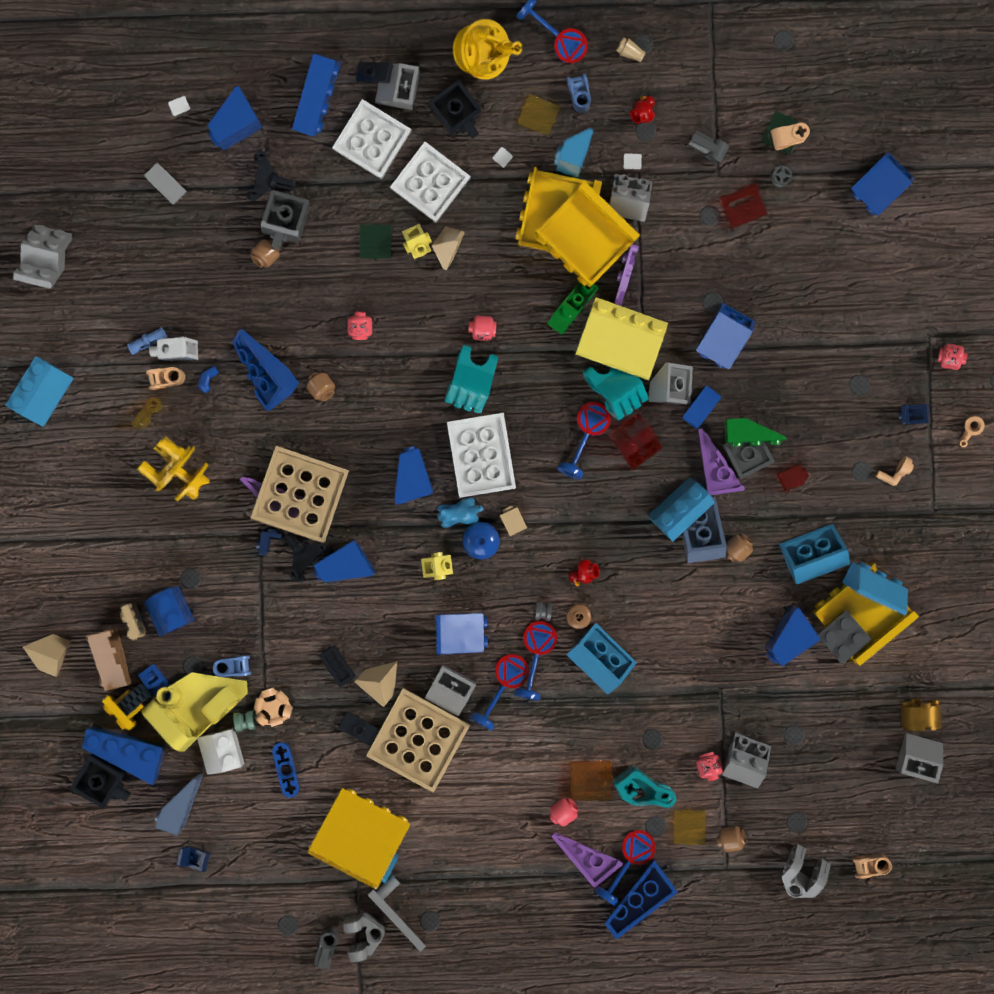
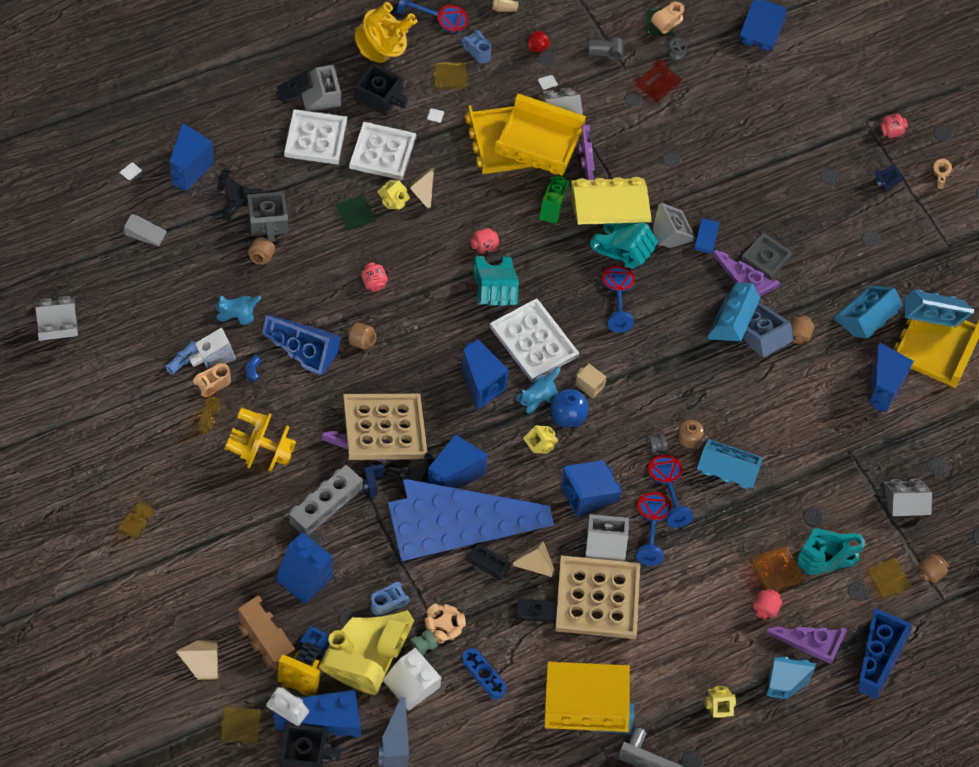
camera: 25 degrees left, 30 degrees down
(38, 498) = (135, 524): none -> clear yellow plate
(39, 391) = (97, 432): dark azure slope -> none
(59, 728) = (240, 725): none -> clear yellow piece
(94, 744) = (288, 706): none -> white piece
(131, 615) = (275, 588): tan plate -> none
(190, 561) = (323, 510): none -> light grey brick
(218, 308) = (237, 308): none -> dark azure animal
(315, 612) = (449, 518): none -> blue wing
(316, 95) = (252, 117): blue wedge -> none
(475, 886) = (720, 702): none -> light yellow brick
(544, 890) = (788, 677): none -> dark azure slope
(572, 154) = (497, 82): dark azure slope -> none
(586, 572) = (679, 399): red animal -> none
(635, 441) = (665, 279): clear red slope -> none
(638, 849) = (853, 614): piece -> none
(709, 766) = (877, 514): coral head -> none
(725, 336) = (697, 174): slope -> none
(746, 431) = (759, 233): green slope -> none
(792, 478) = (815, 260): clear red window -> none
(843, 637) = (932, 365): dark grey plate -> none
(904, 467) = (904, 219): light nougat plate -> none

